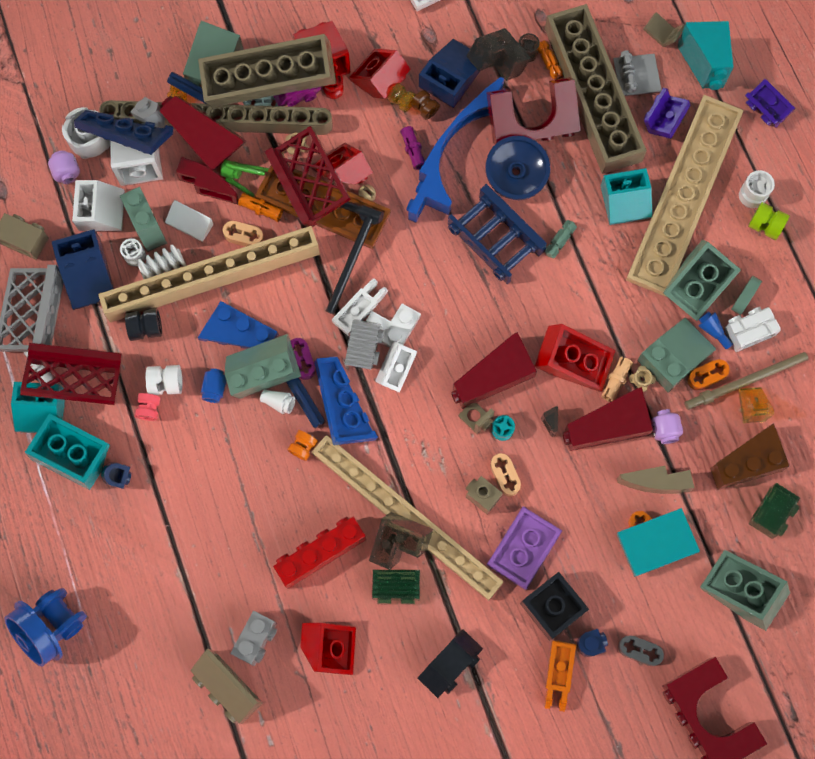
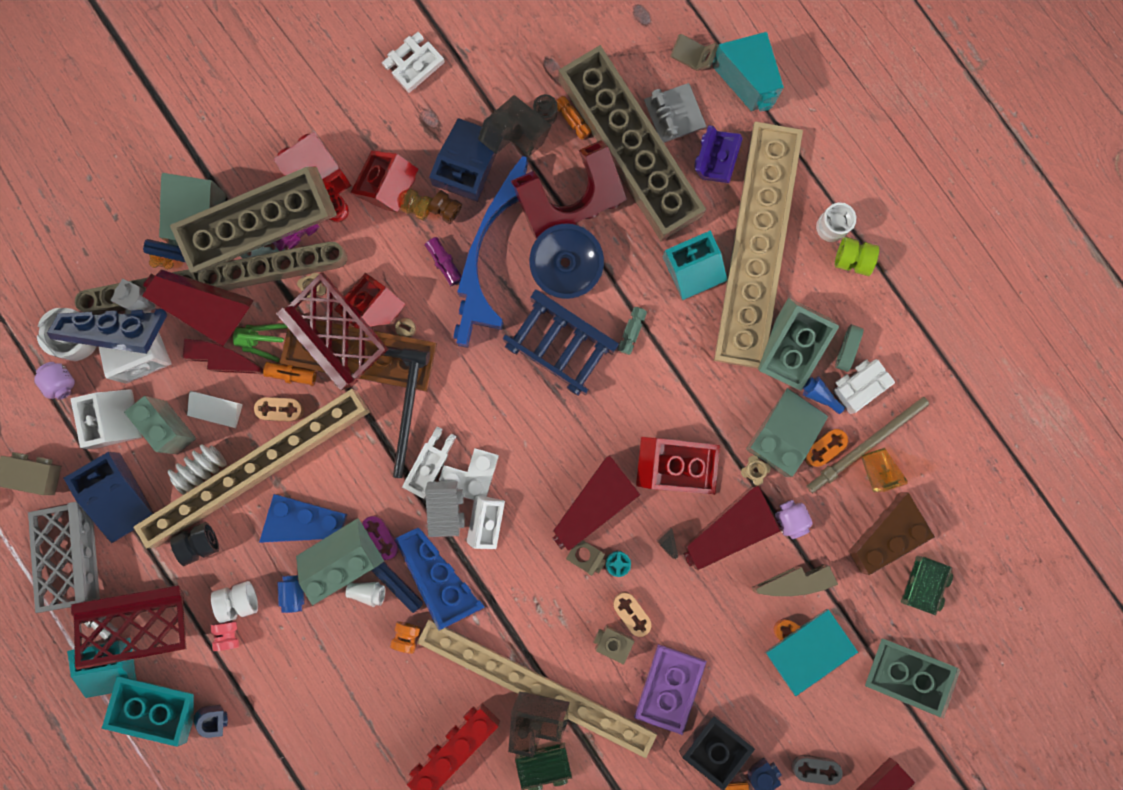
camera: 15 degrees left, 10 degrees up
(132, 256) = (165, 462): white wheel -> none
(617, 379) = (728, 478): light nougat pin -> none
(770, 103) = (829, 114): dark purple bracket -> none

